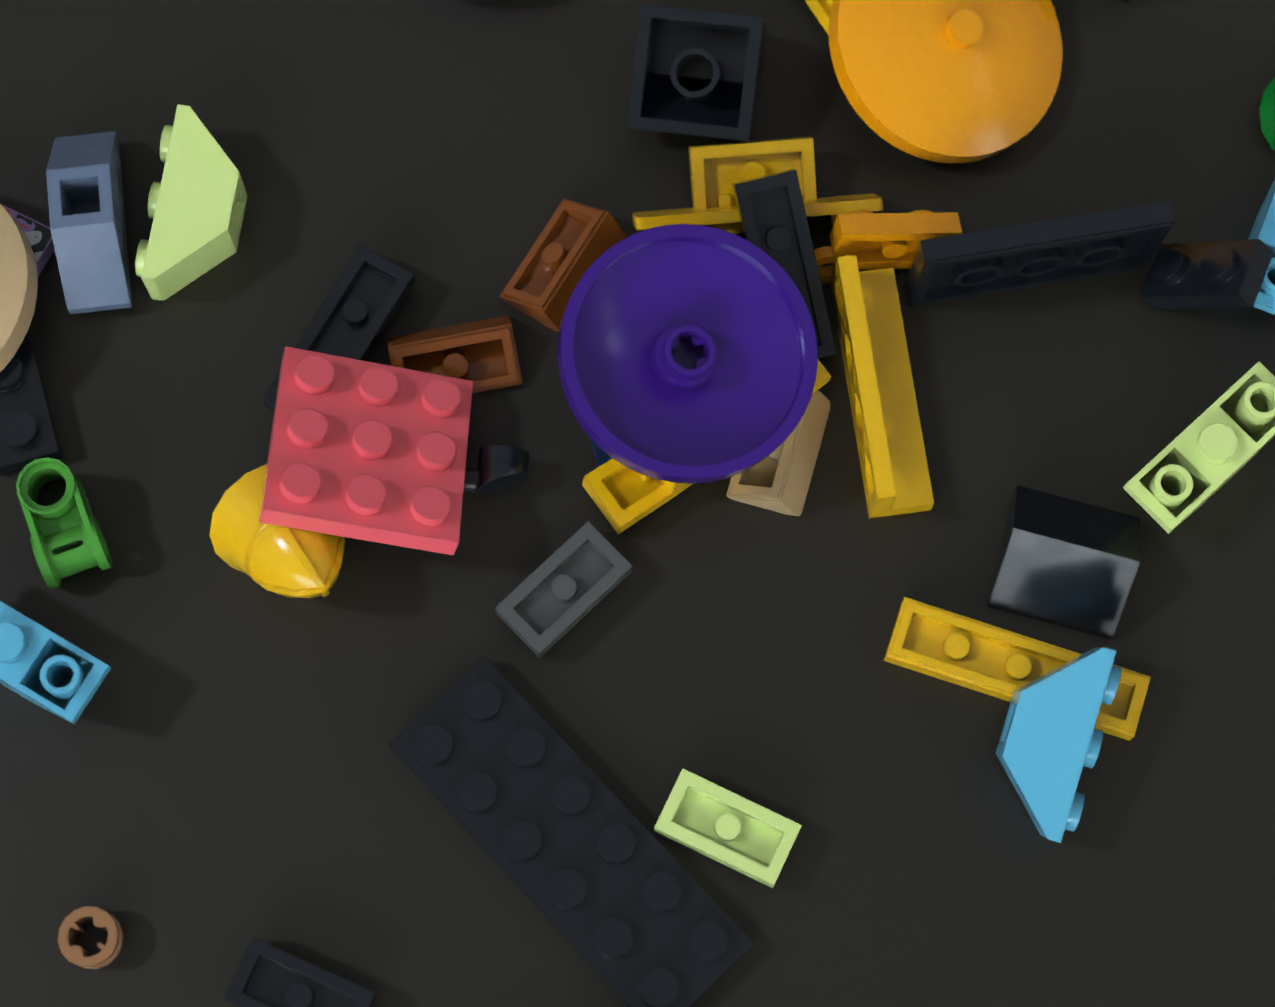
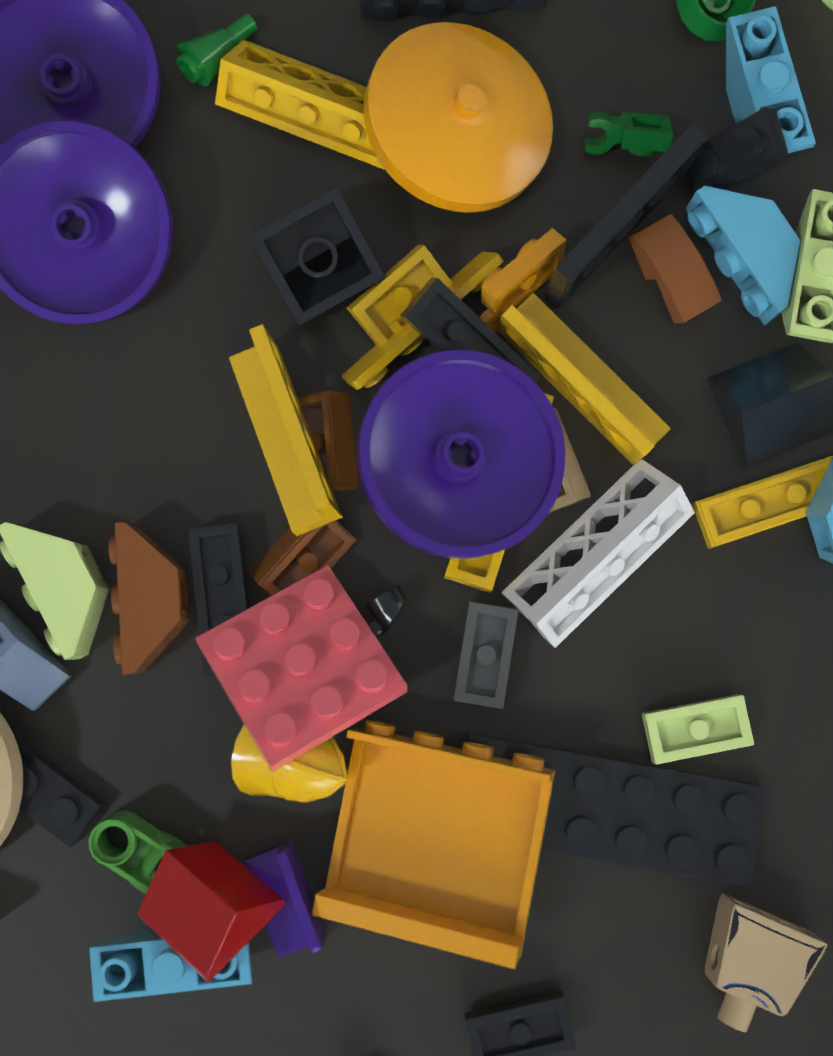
camera: 30 degrees left, 10 degrees up
(89, 612) = (207, 905): none -> red slope
(167, 682) = (294, 924): none -> dark purple panel
(266, 286) = (148, 598): none -> dark orange slope
(372, 730) = (437, 843): none -> light orange panel
(529, 223) = (284, 435): none -> yellow fence
(764, 582) = (607, 556): none -> white fence
(1062, 347) = (676, 265): none -> dark orange slope
(1116, 180) = (637, 132): none -> green plate
(1159, 378) = (749, 245): none -> medium azure slope

